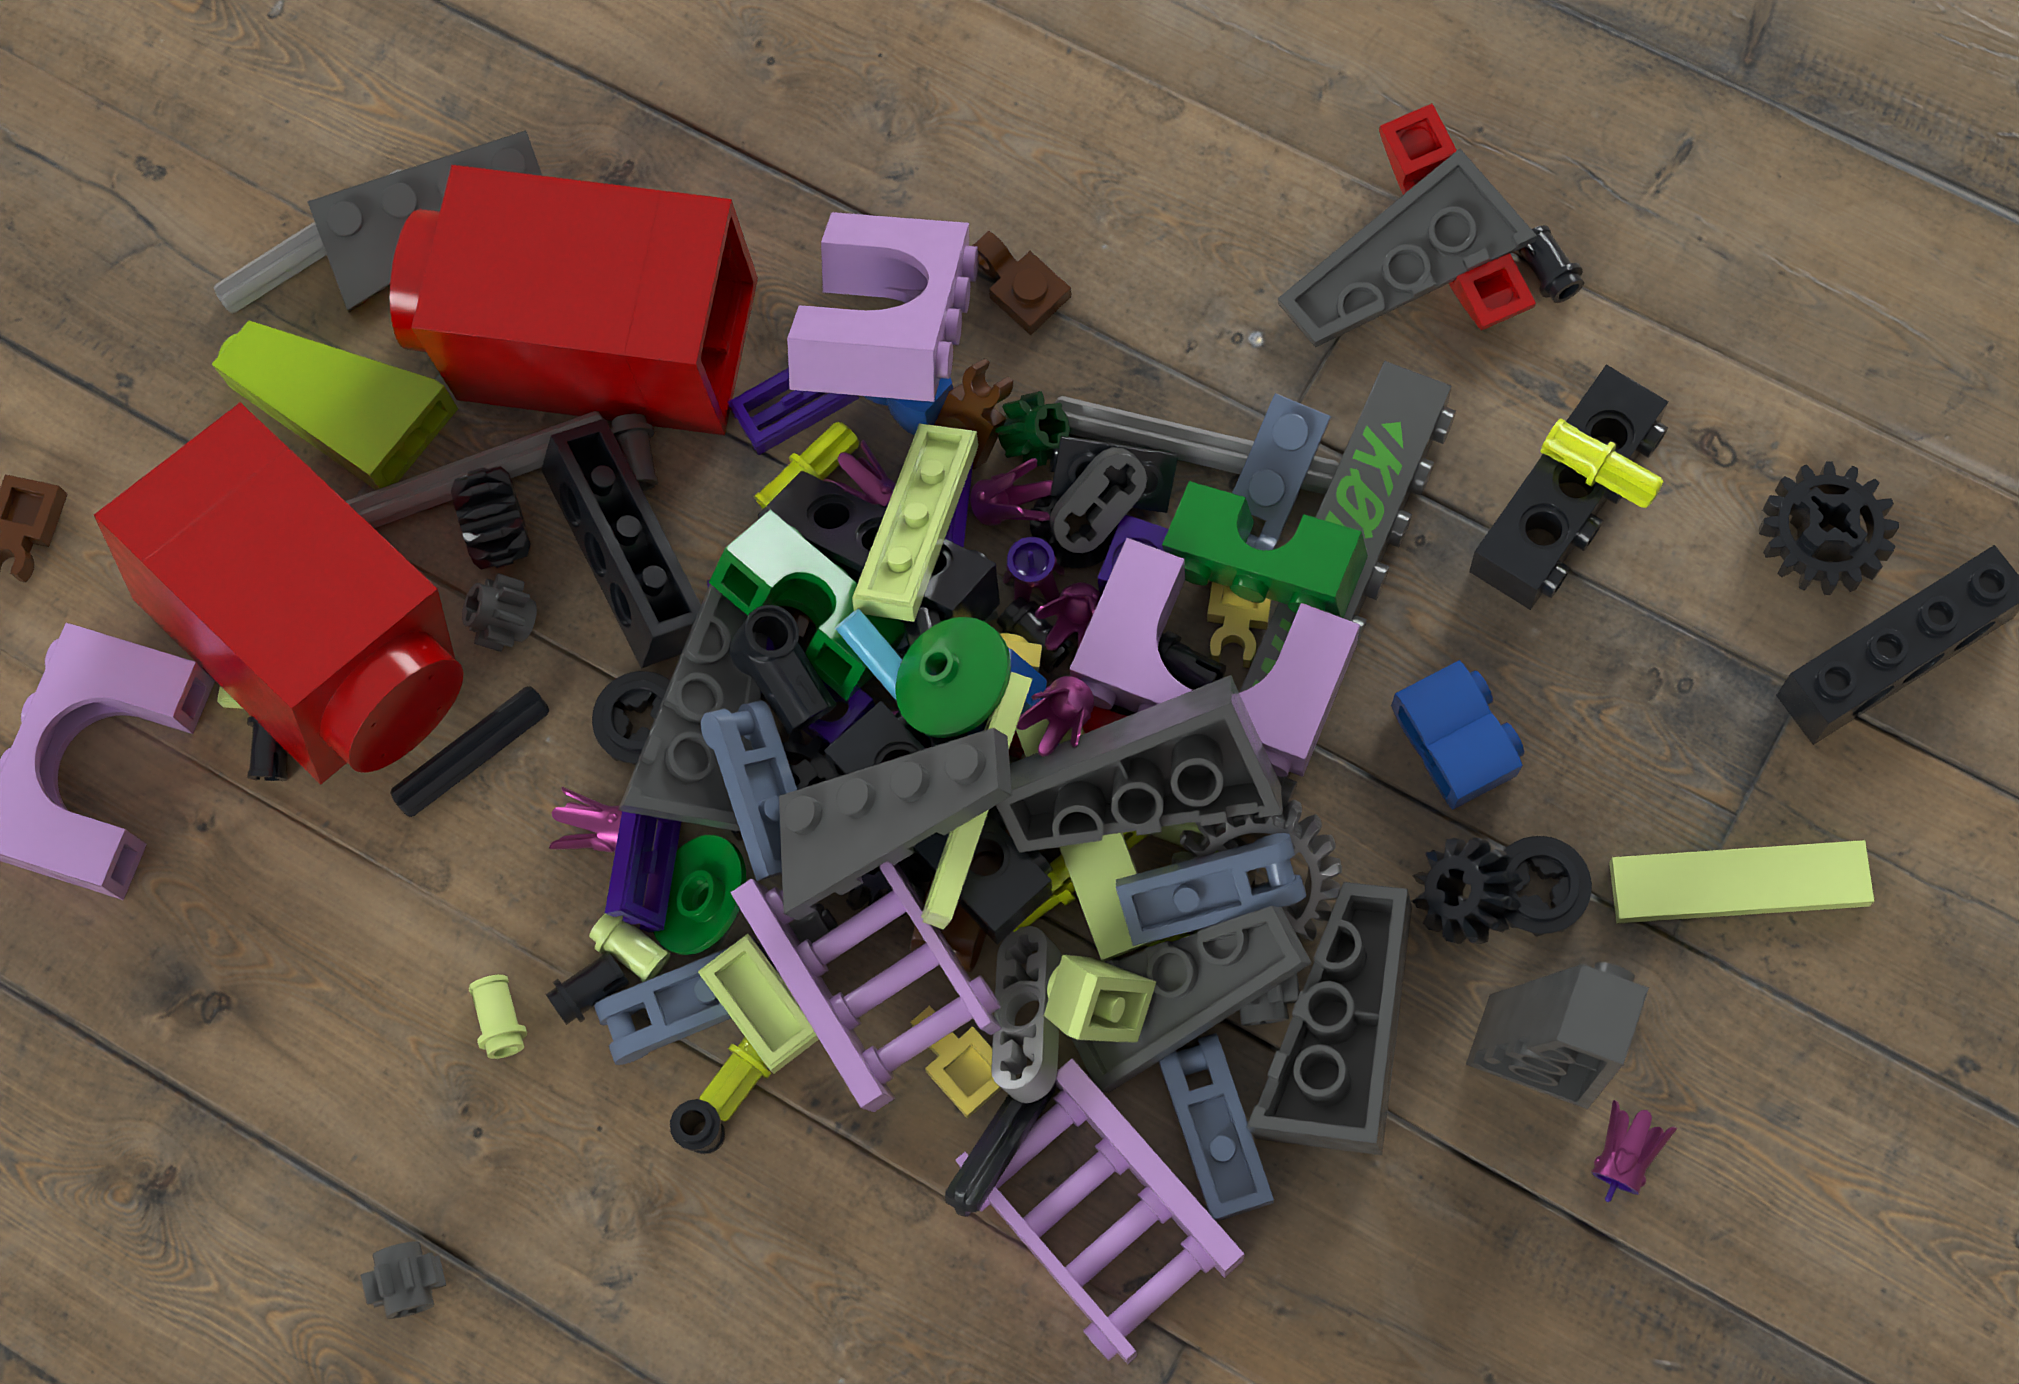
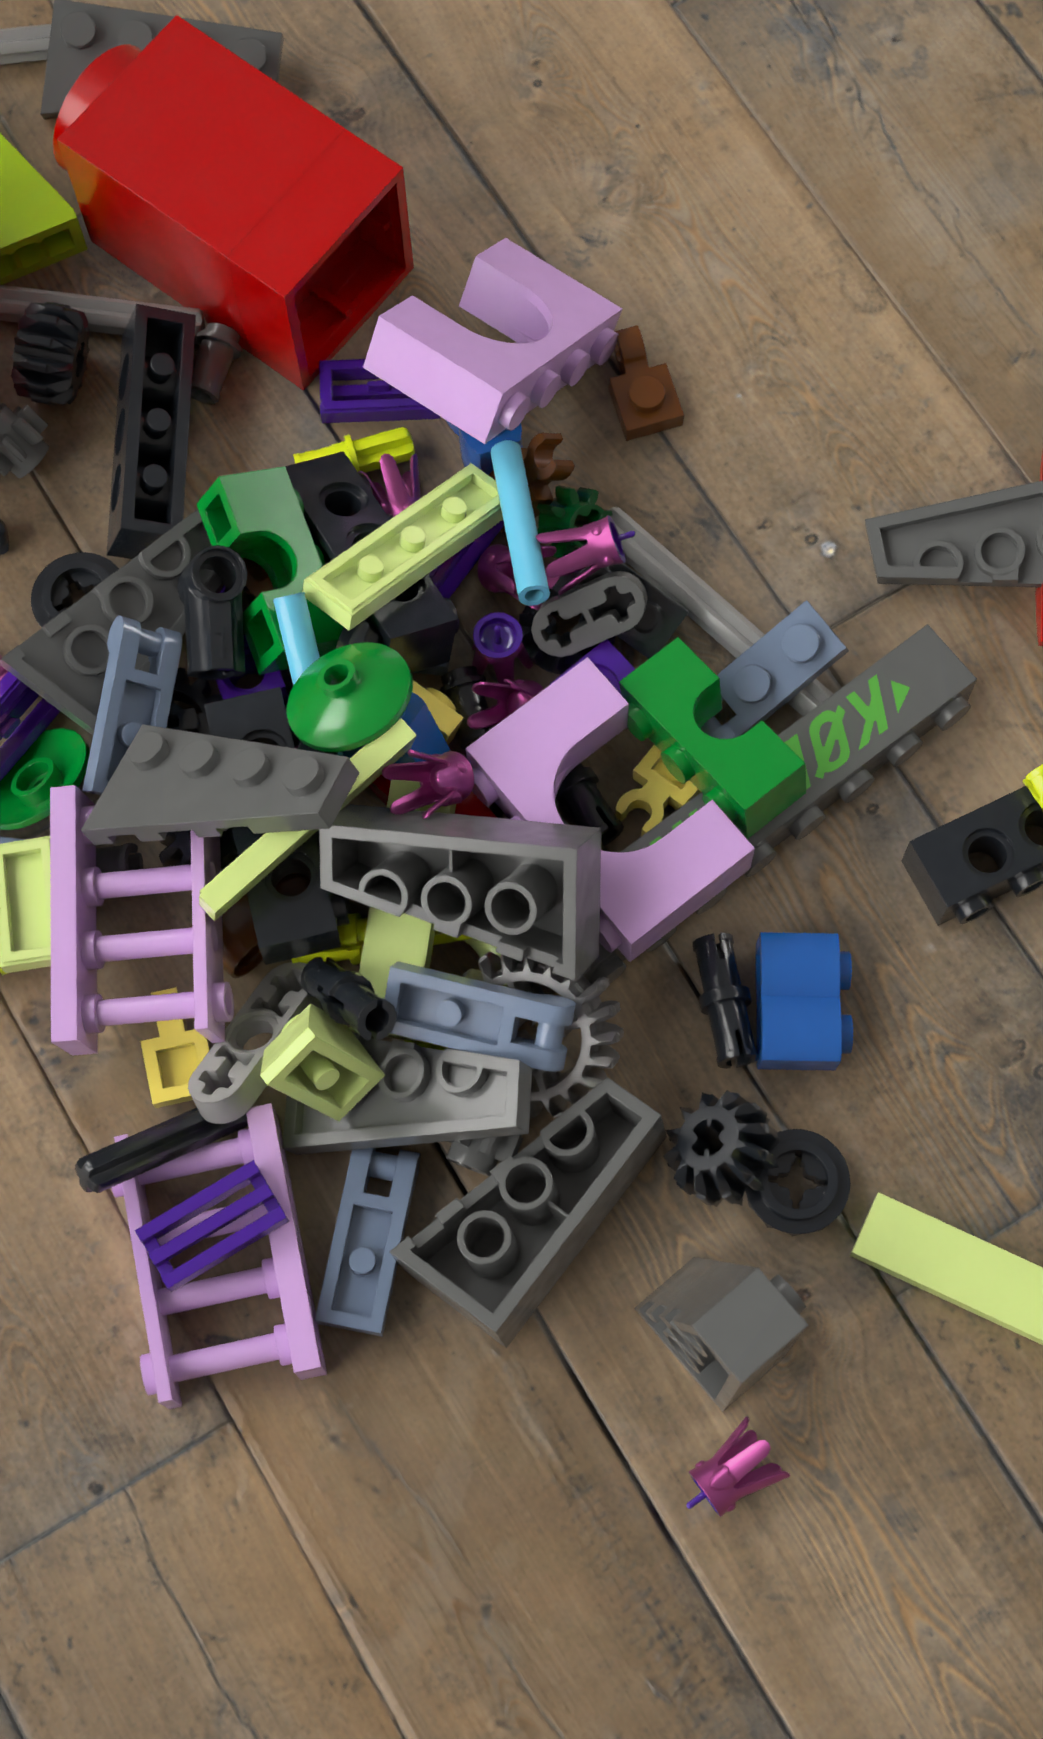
camera: 20 degrees right, 0 degrees up
(998, 453) = (519, 523): none -> medium azure piece
(1082, 443) = (602, 550): none -> flat silver piece
(1091, 933) = (348, 998): none -> black pin
(1112, 1138) = (198, 1204): none -> dark purple tile
(1394, 766) = (725, 1000): none -> black pin

